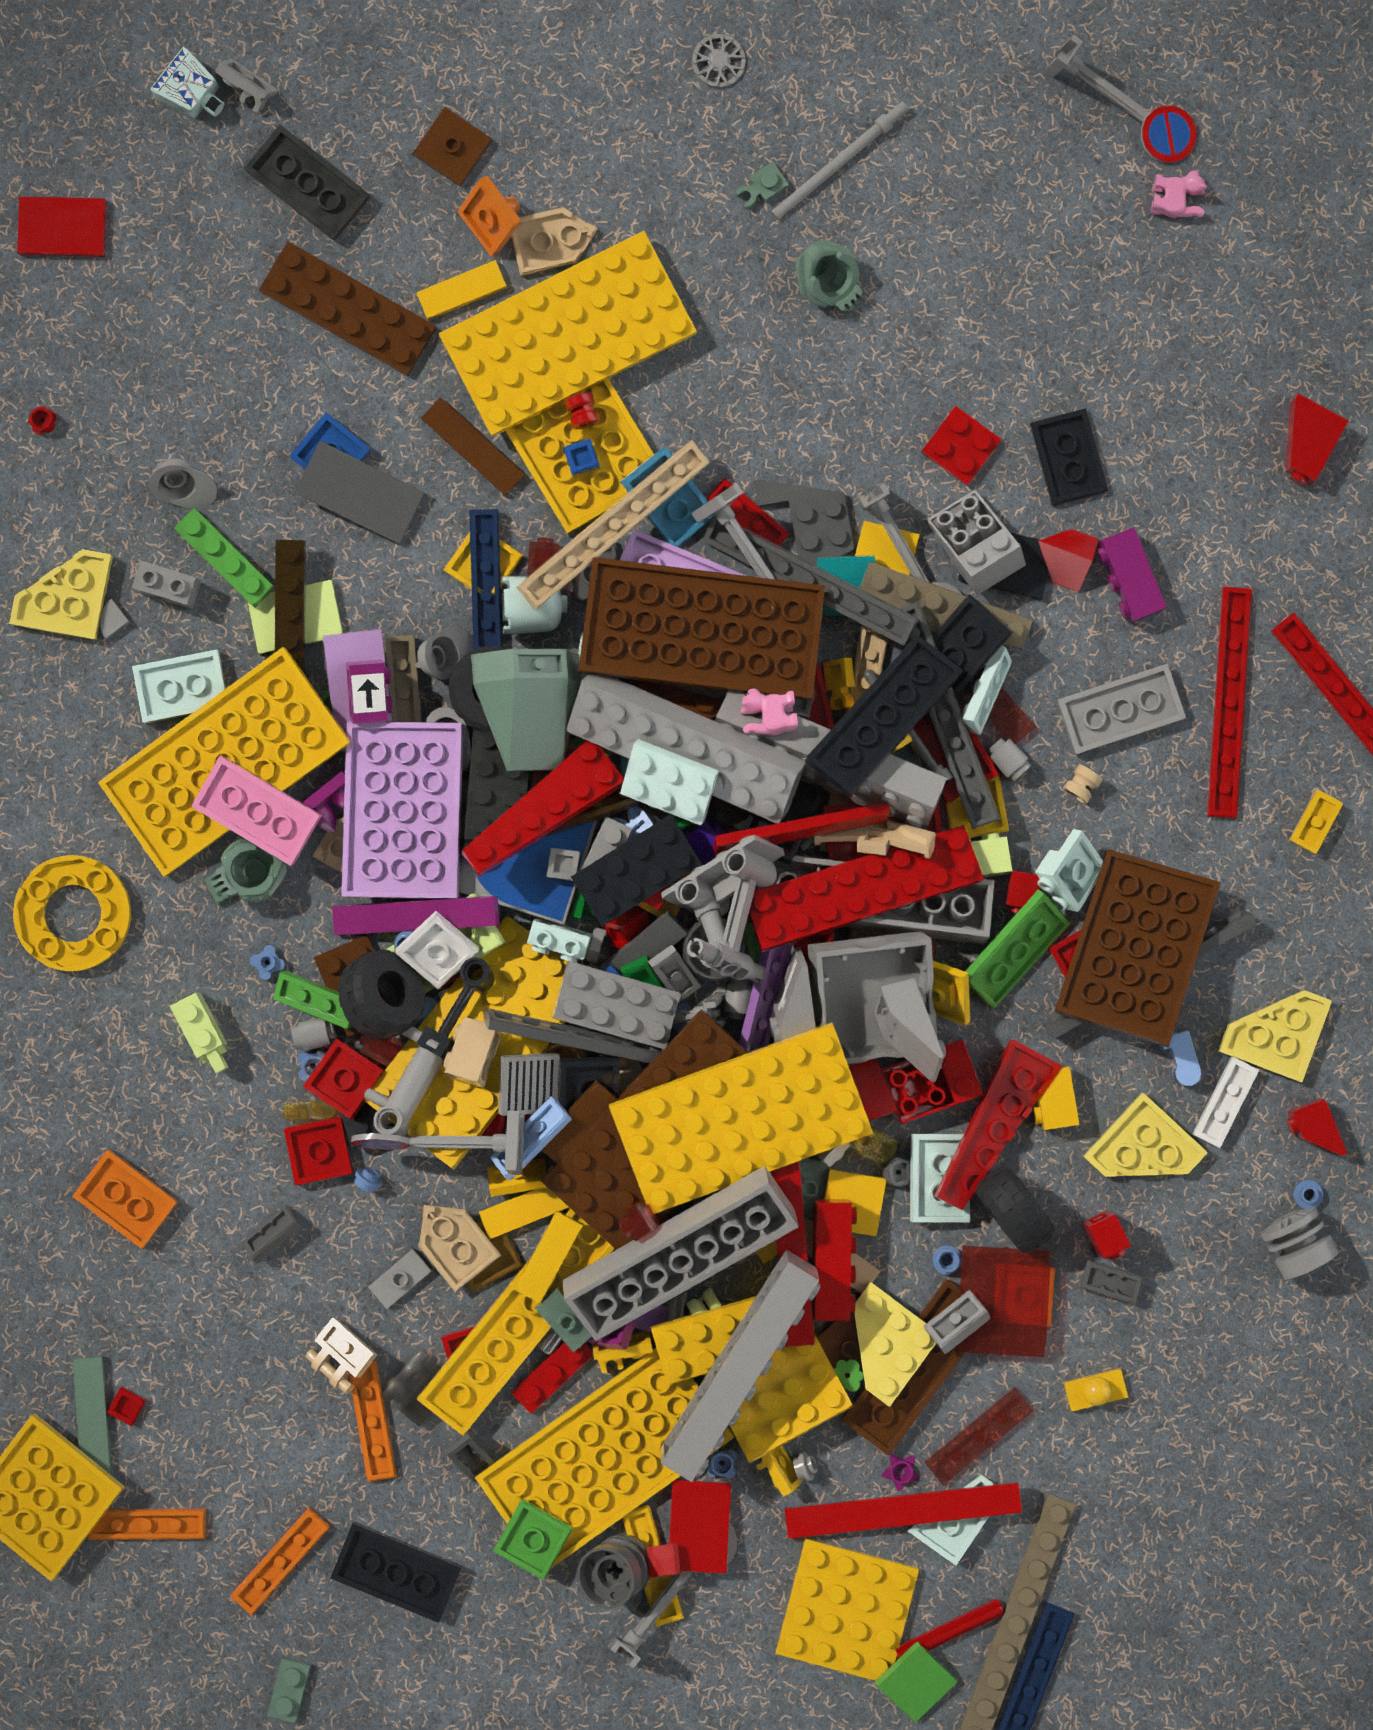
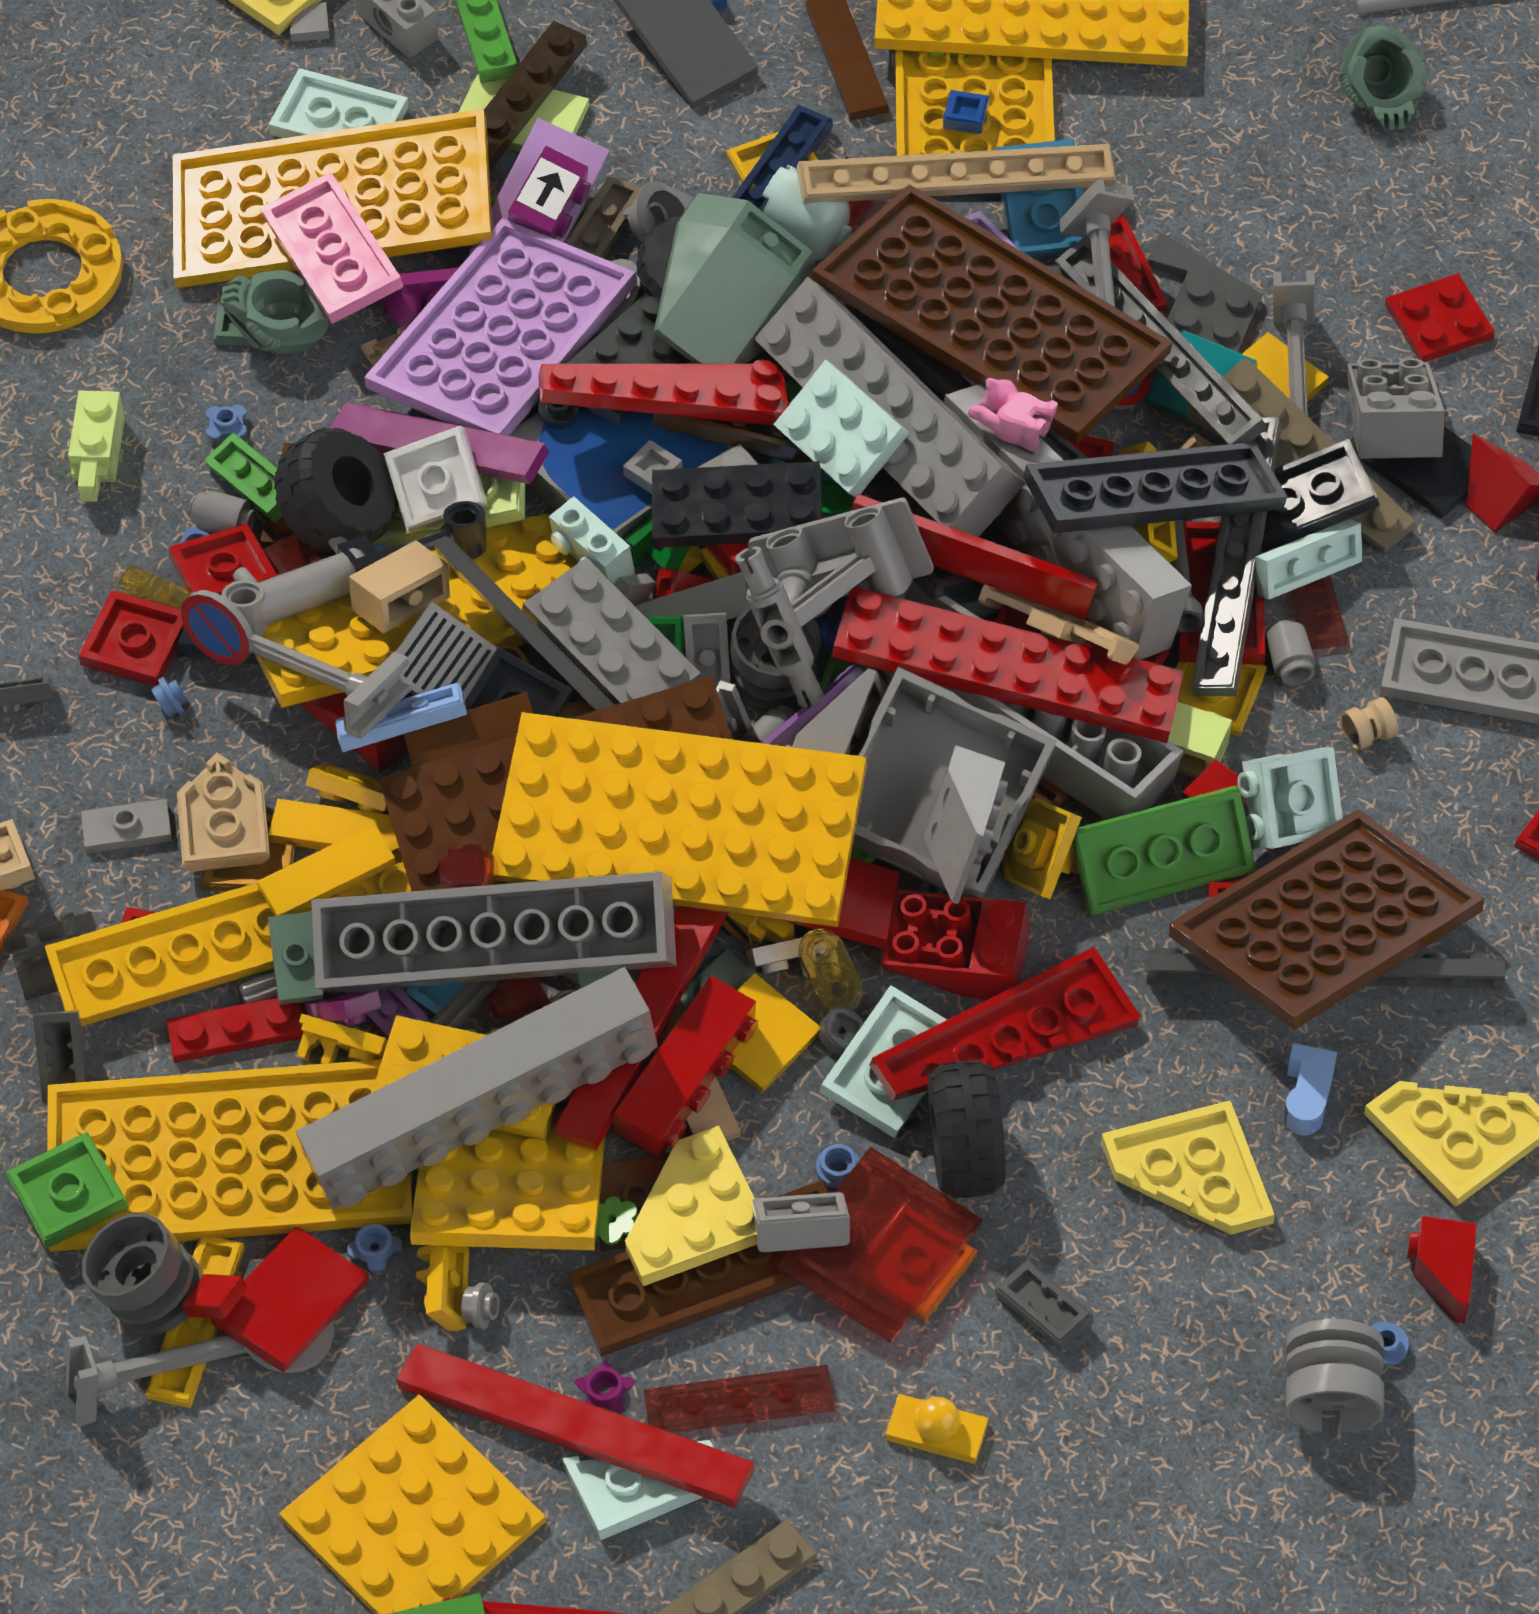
camera: 30 degrees right, 30 degrees down
(582, 411) = (998, 64): red wheel -> none
(1058, 1103) = (1106, 1055): yellow slope -> none
(1106, 1235) = (1071, 1228): red brick -> none
(1225, 1102) = (1336, 1173): white plate -> none

